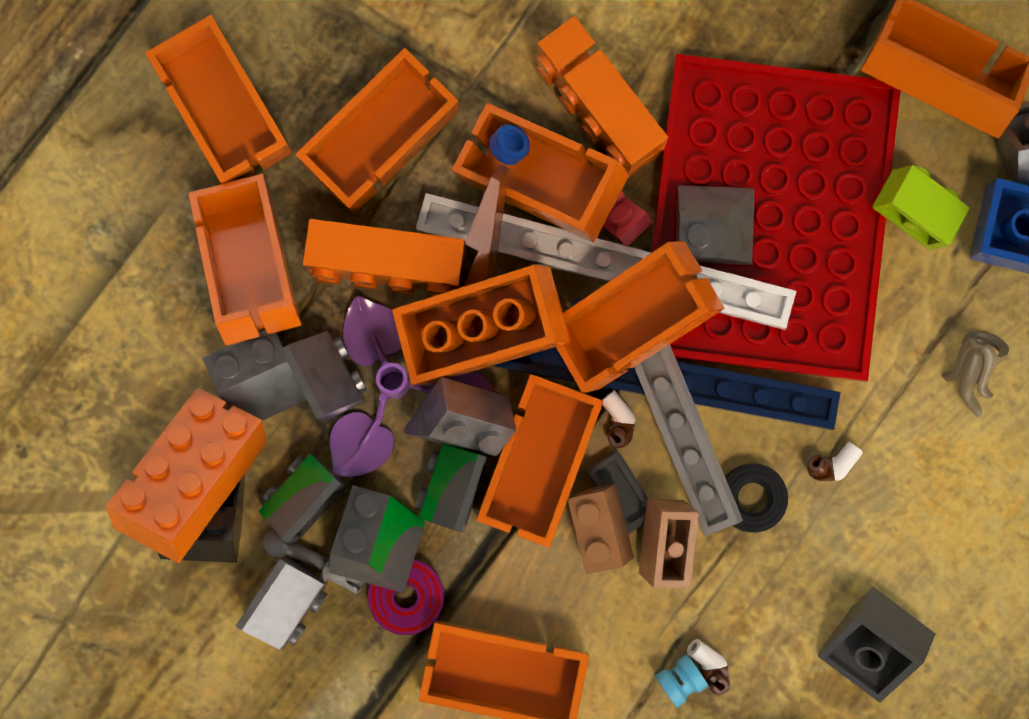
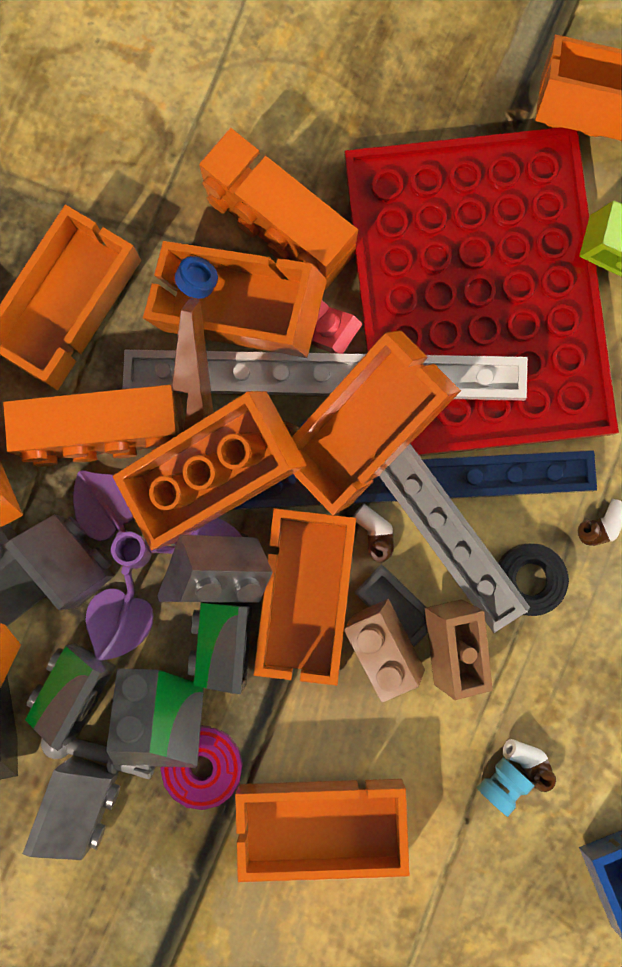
camera: 15 degrees left, 0 degrees up
(716, 223) = (427, 308): flat silver slope -> none

